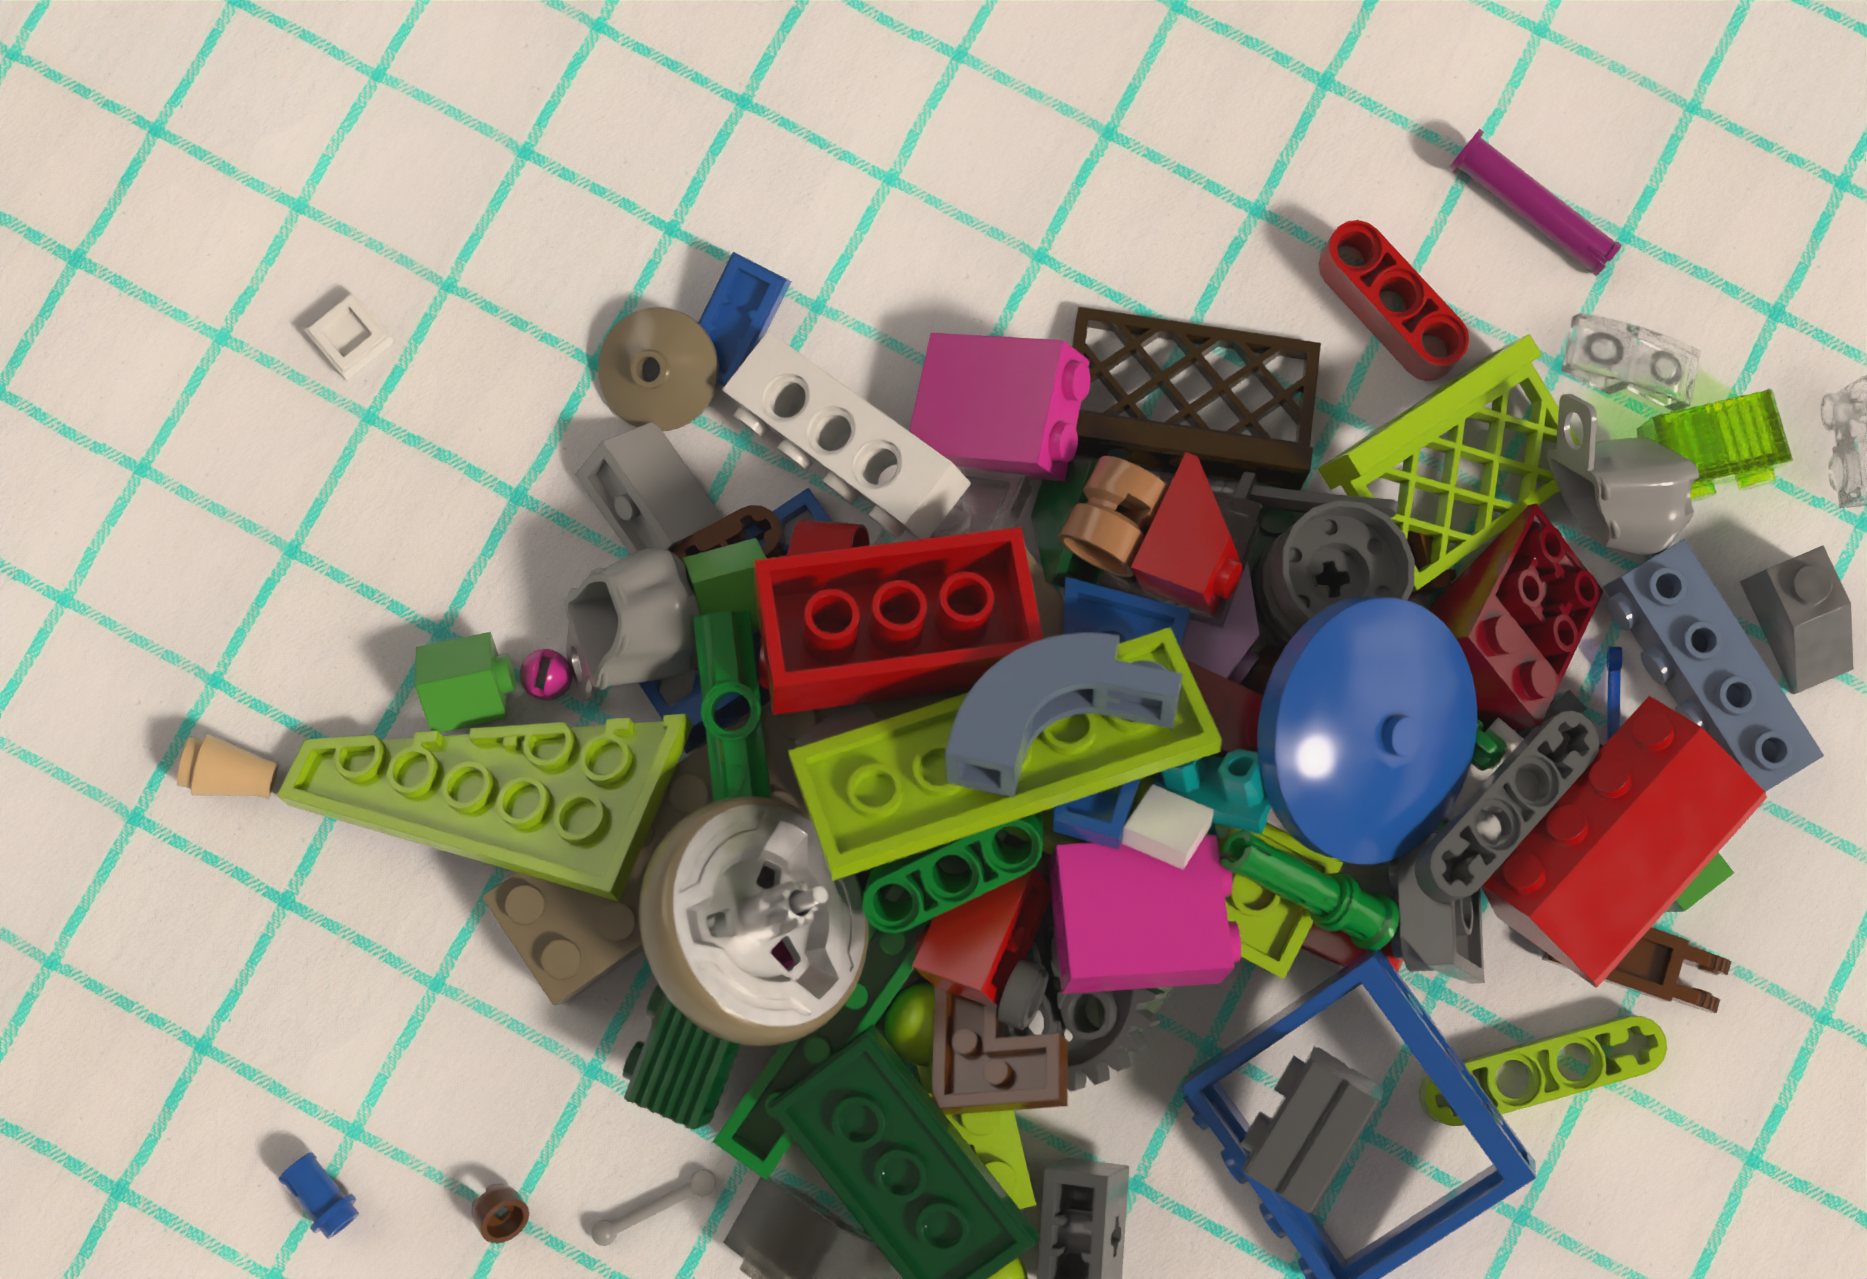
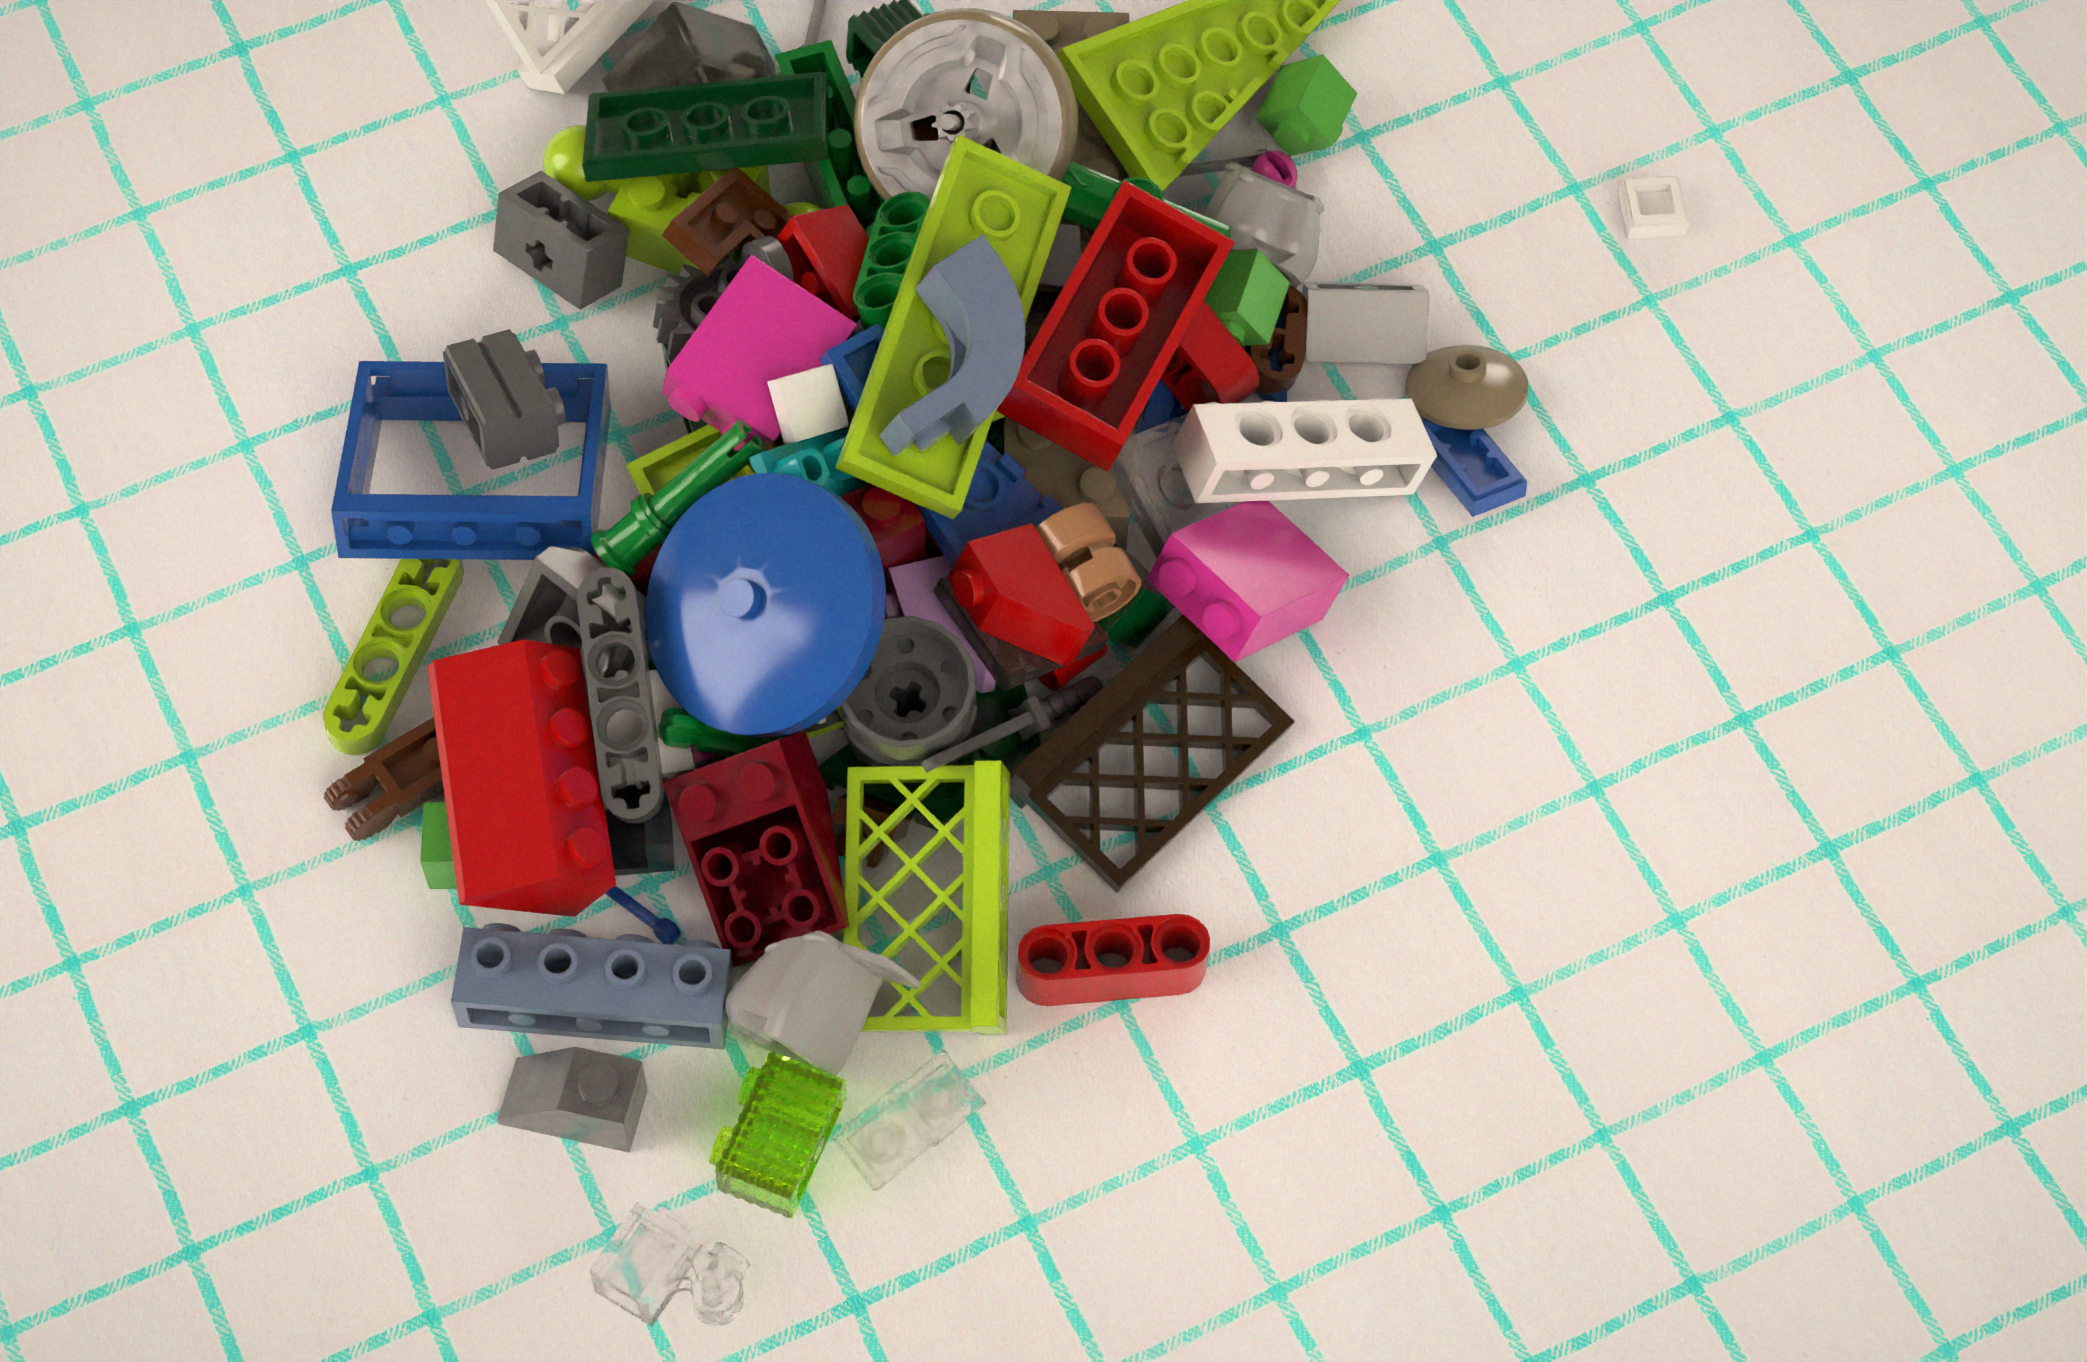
camera: 125 degrees right, 20 degrees down
(1536, 204) = (1114, 1148): magenta pin -> none

